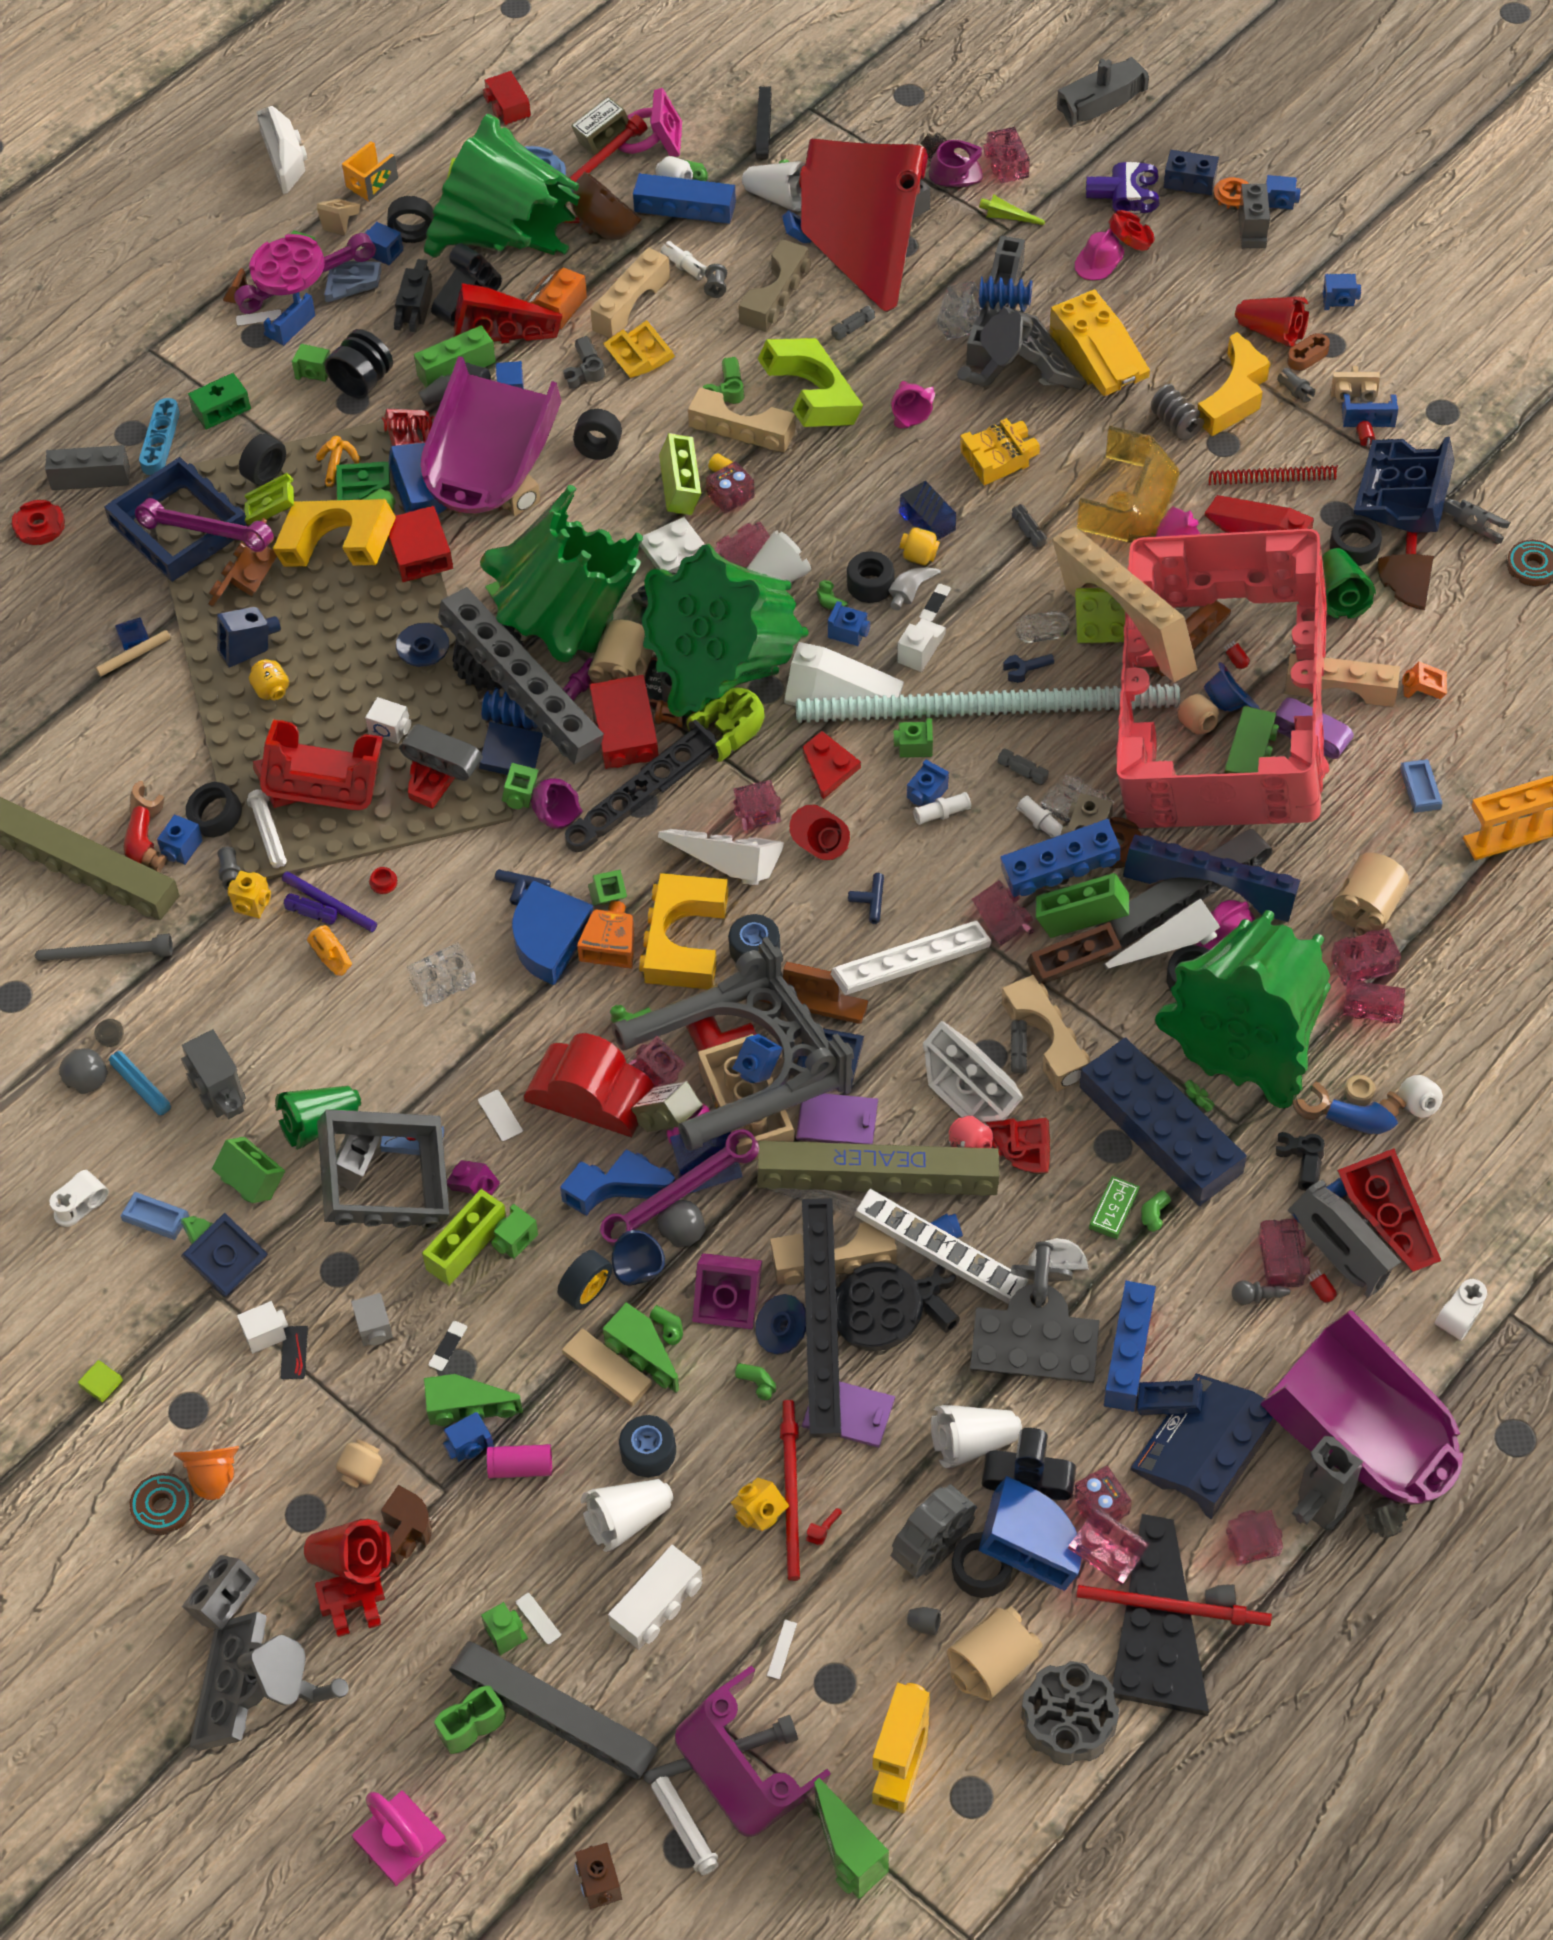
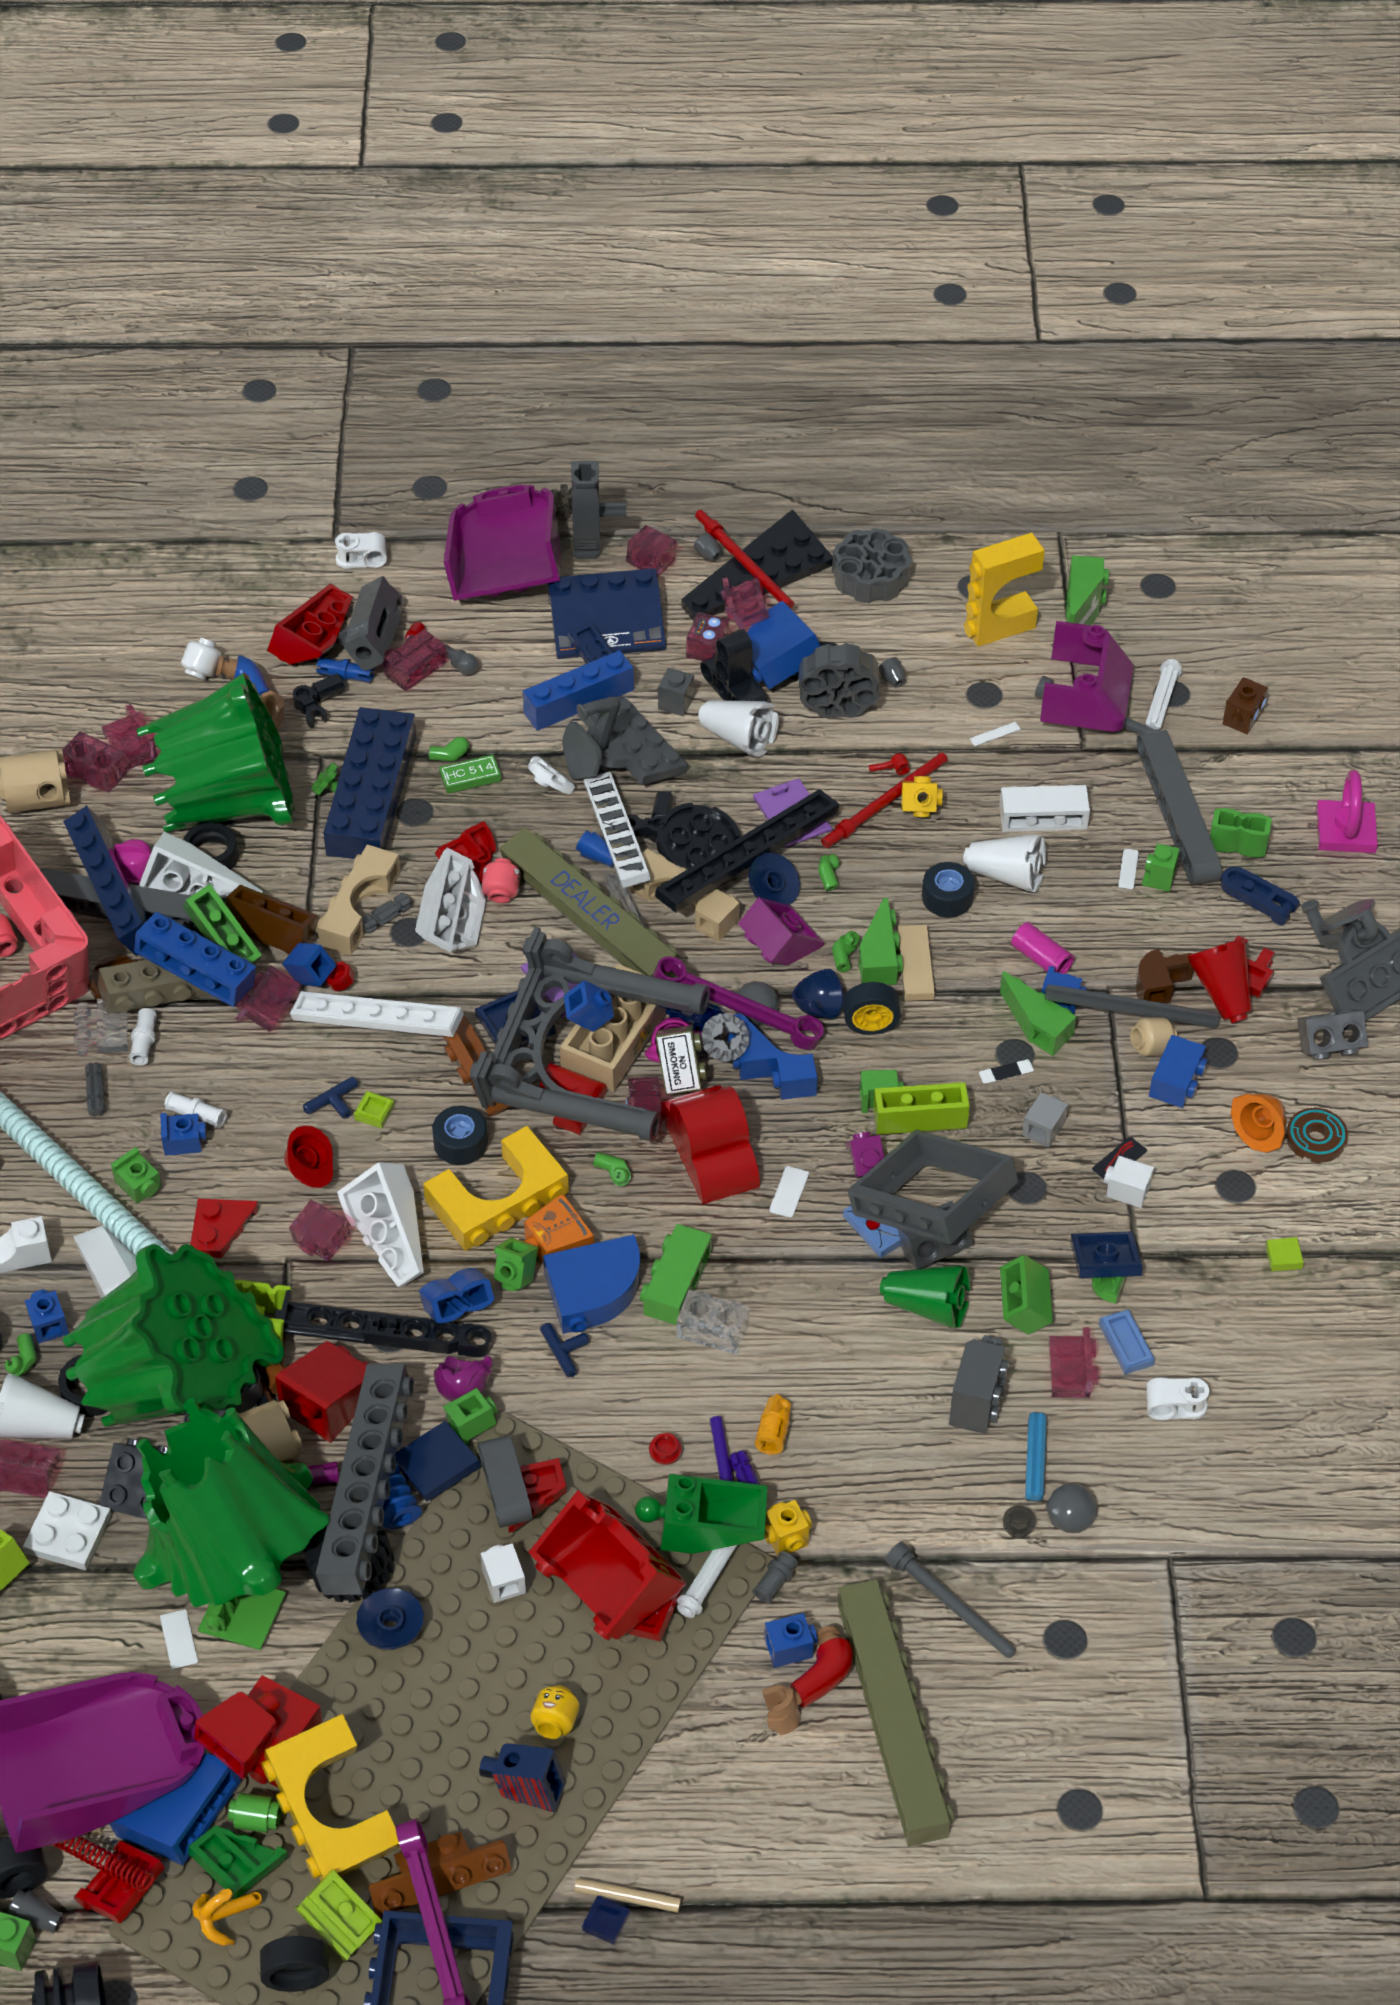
camera: 135 degrees left, 5 degrees down
(175, 1163) = (1072, 1365): none -> clear pink bracket
(225, 820) = (744, 1615): black tyre -> none
(295, 845) = (706, 1513): none -> green slope
(309, 1444) = (1177, 1071): none -> blue brick
(400, 1463) = (1131, 1006): none -> dark grey axle
(405, 1685) = (1259, 894): none -> dark blue plate
(418, 505) = (239, 1730): none -> red torso
(502, 983) = (676, 1272): none -> bright green brick
(620, 841) = (451, 1297): none -> blue brick
(643, 1151) = (718, 1049): none -> light grey gear
(836, 915) = (374, 1109): none -> lime tile
(981, 972) = (340, 977): none -> red tile
(992, 1654) = (881, 612): tan cylinder -> none
(1004, 950) = (309, 964): none -> blue brick
(1058, 1418) = (676, 692): none -> dark grey brick

